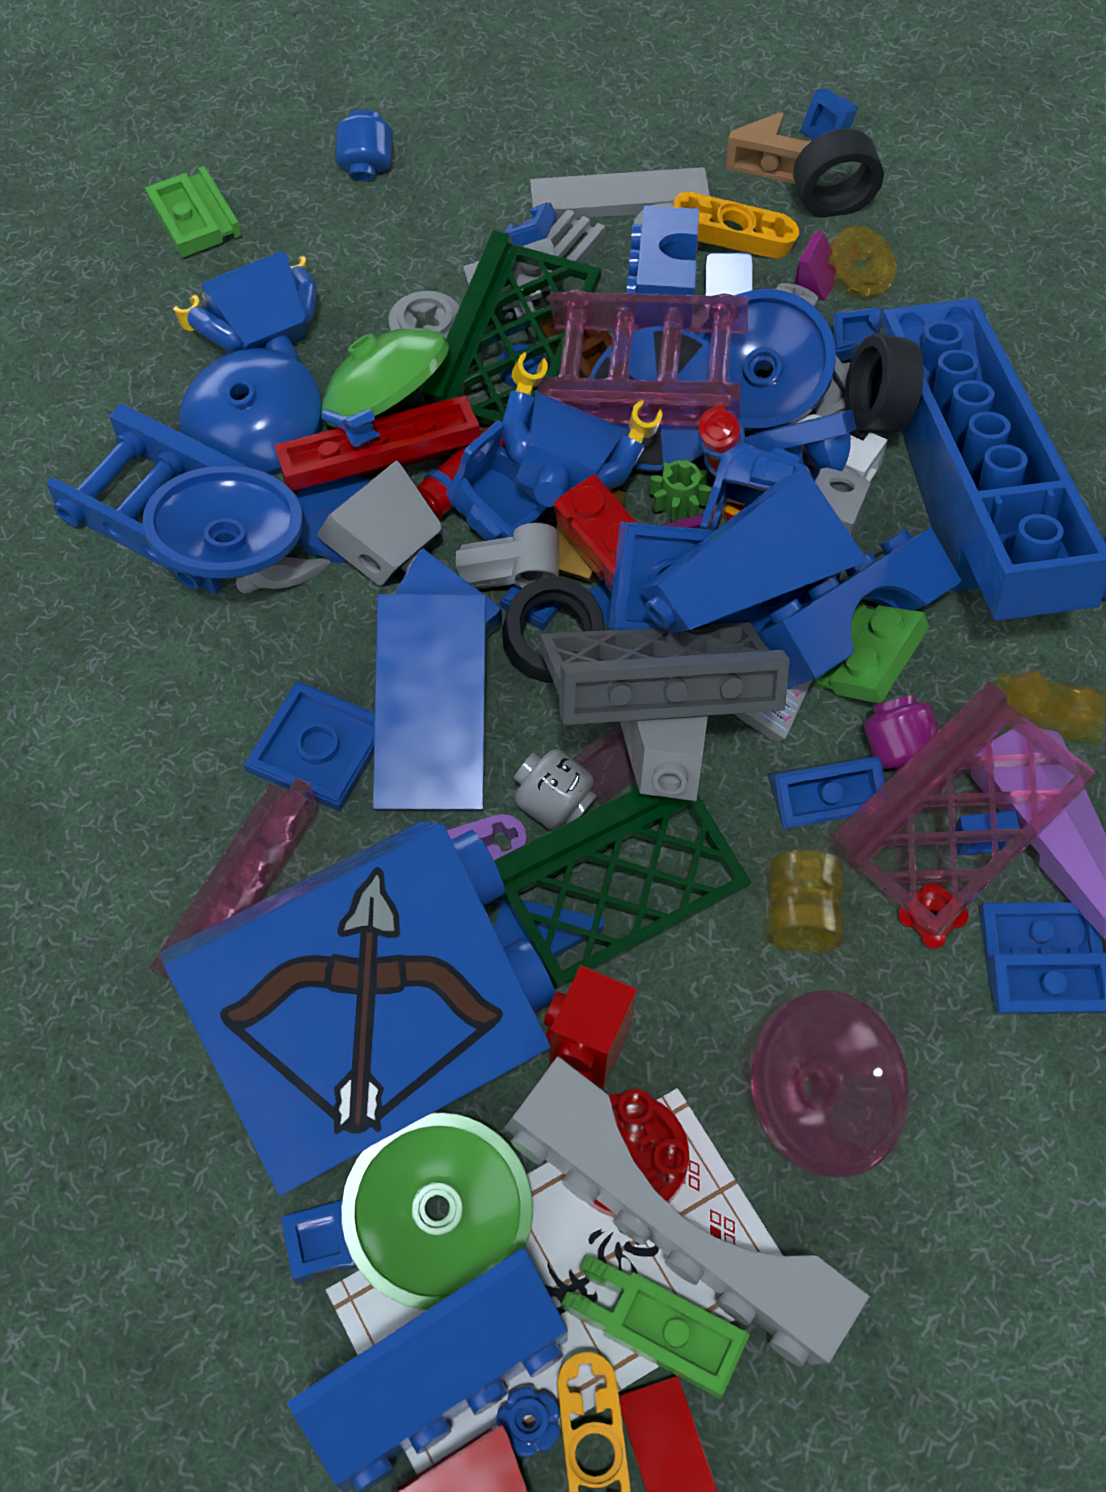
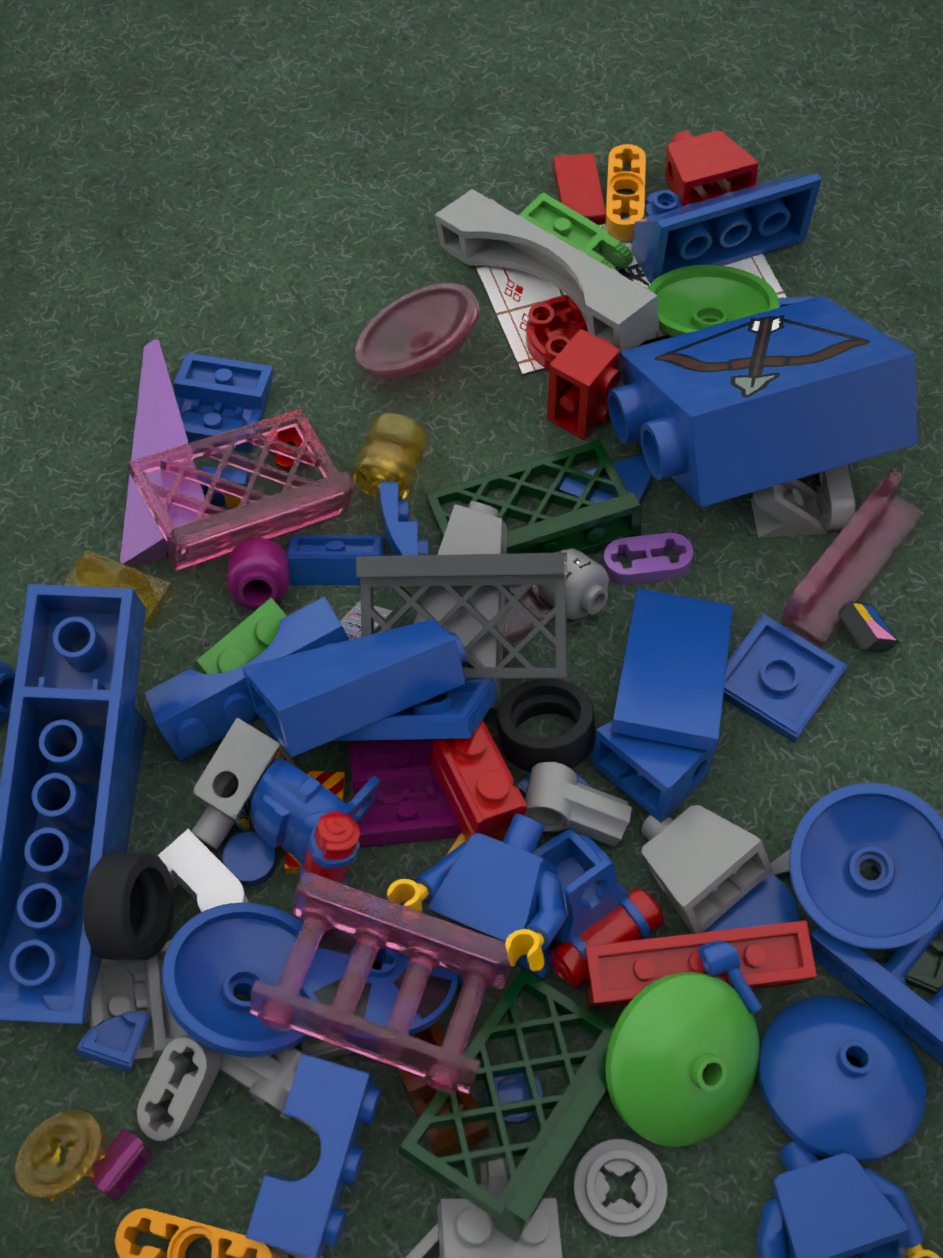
camera: 170 degrees left, 0 degrees up
(220, 805) = (867, 627): none -> black tile
(680, 489) = (379, 851): bright green gear -> none
(728, 273) = (233, 1168): slope -> none
(760, 806) = (399, 531): none -> blue slope
(825, 439) = (241, 863): blue tile -> none

